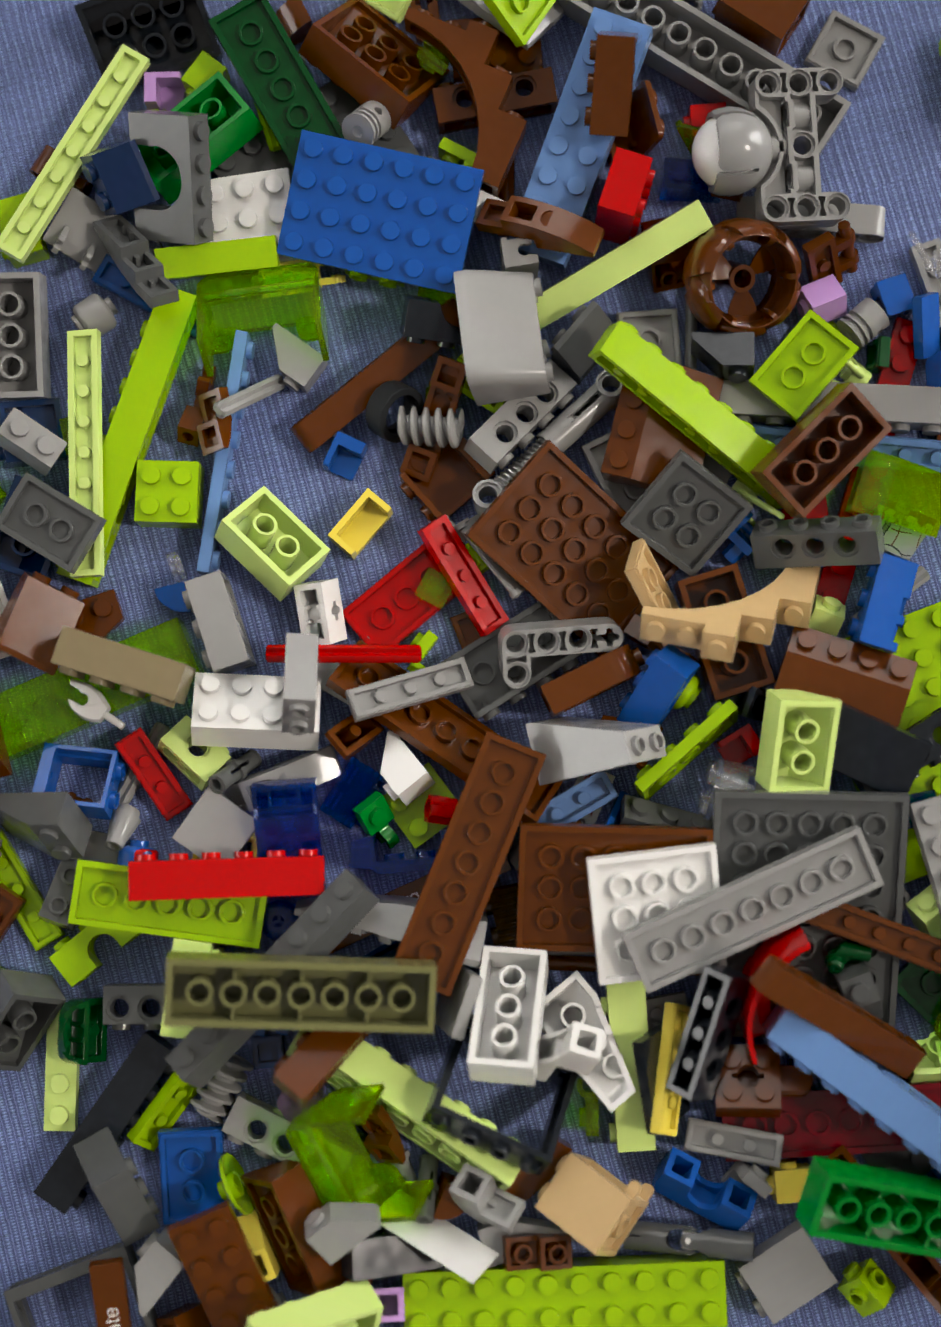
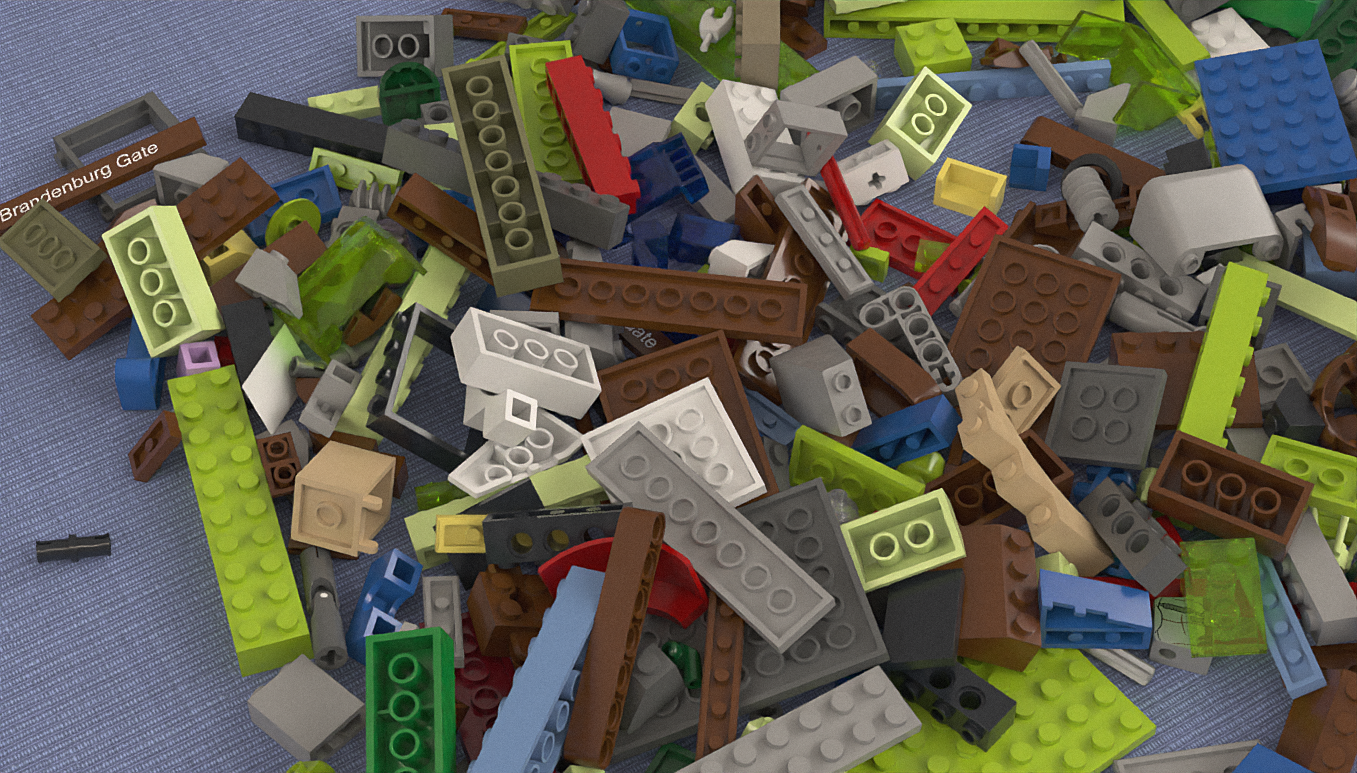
camera: 70 degrees right, 35 degrees down
(116, 1186) = (273, 133): dark grey wedge -> none
(153, 773) = (672, 90): red tile -> none
(224, 778) = (695, 142): dark grey pin -> none
(374, 818) = (688, 253): green plate -> none

